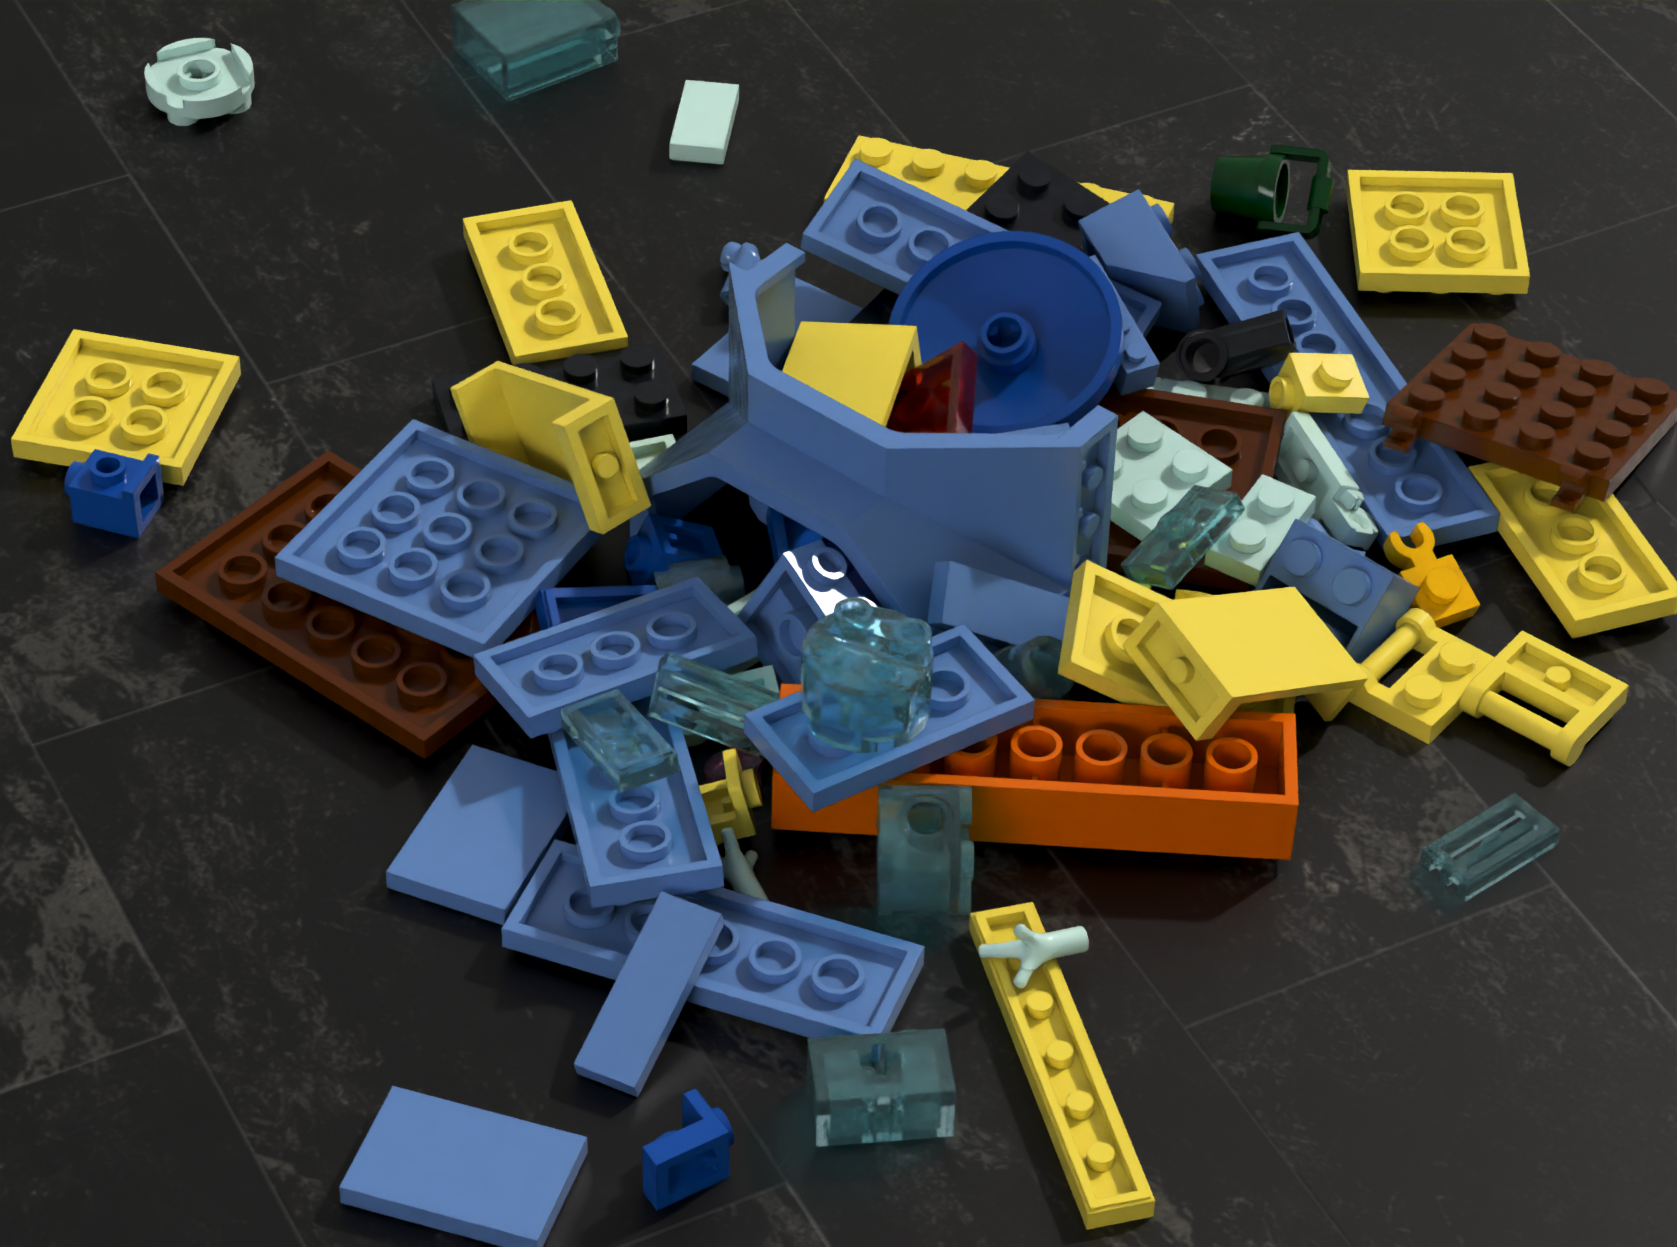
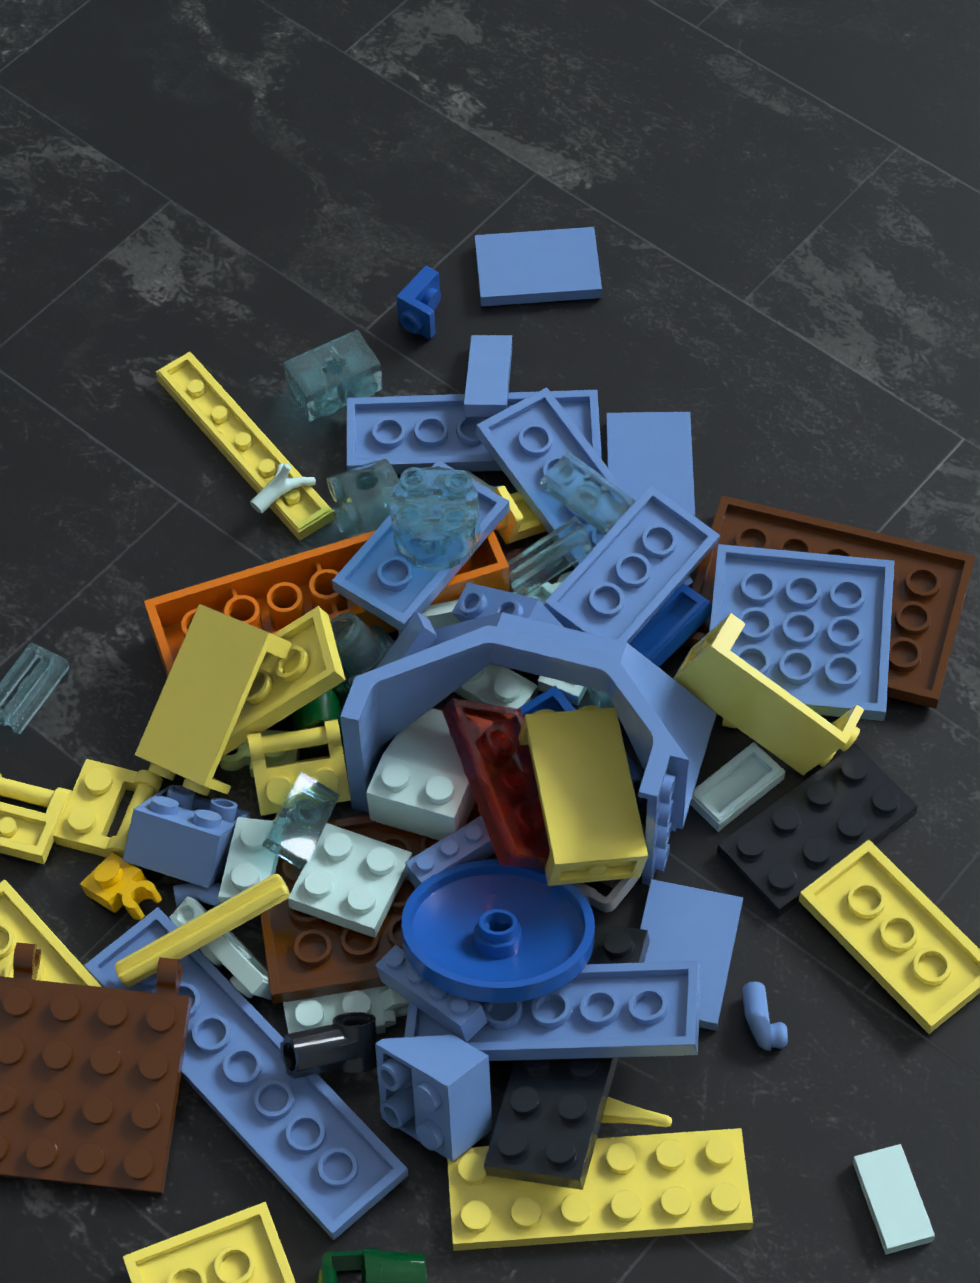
camera: 160 degrees right, 15 degrees up
(1318, 384) = (252, 1024): light yellow bracket -> none
(1348, 459) = (203, 929): none -> light yellow axle

